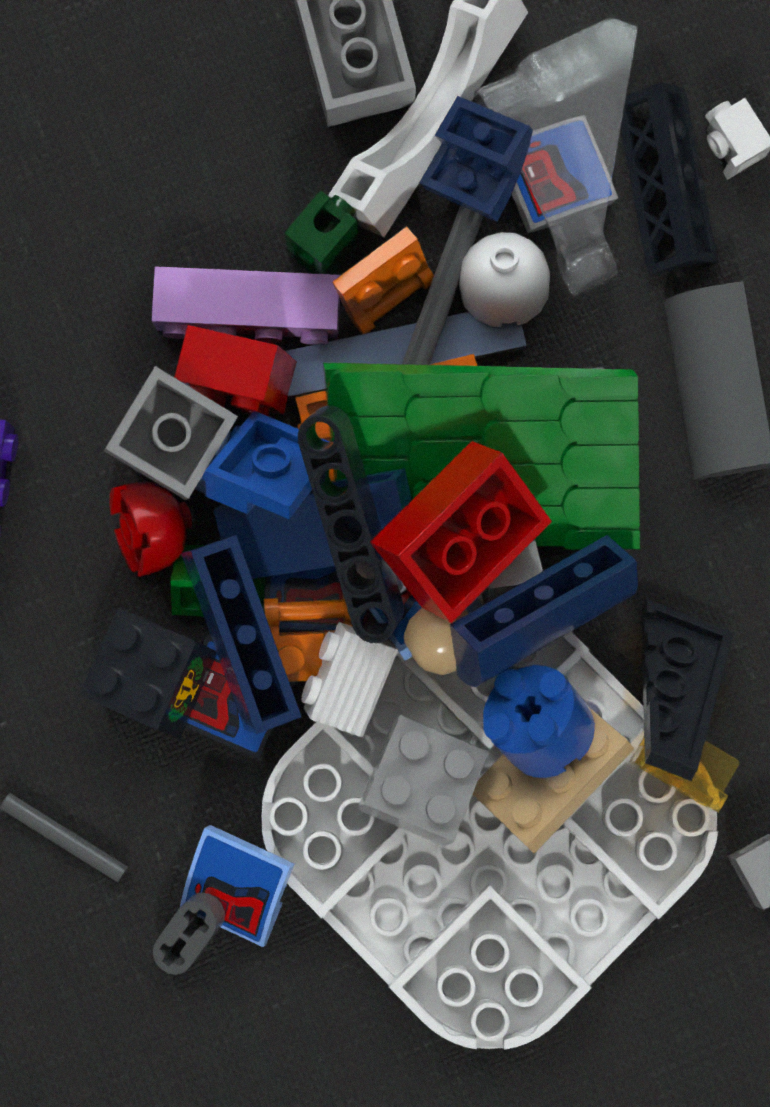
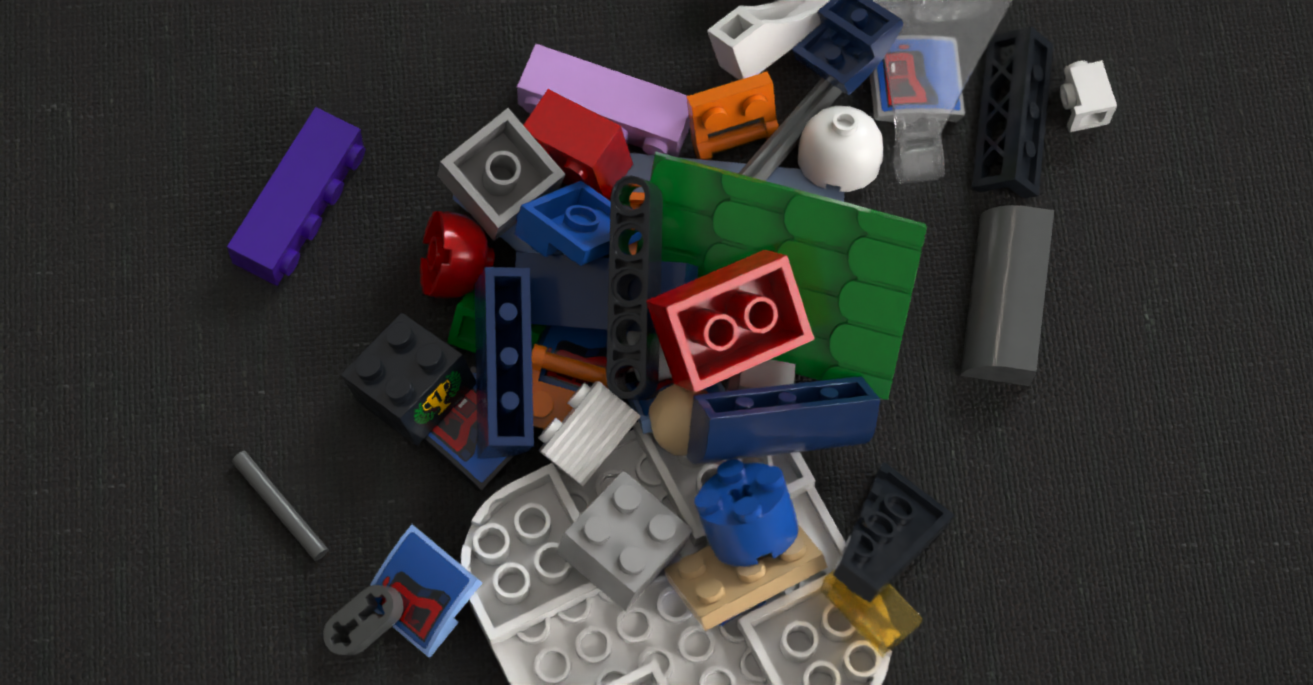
camera: 15 degrees right, 15 degrees down
(322, 234) = (691, 58): dark green brick -> none

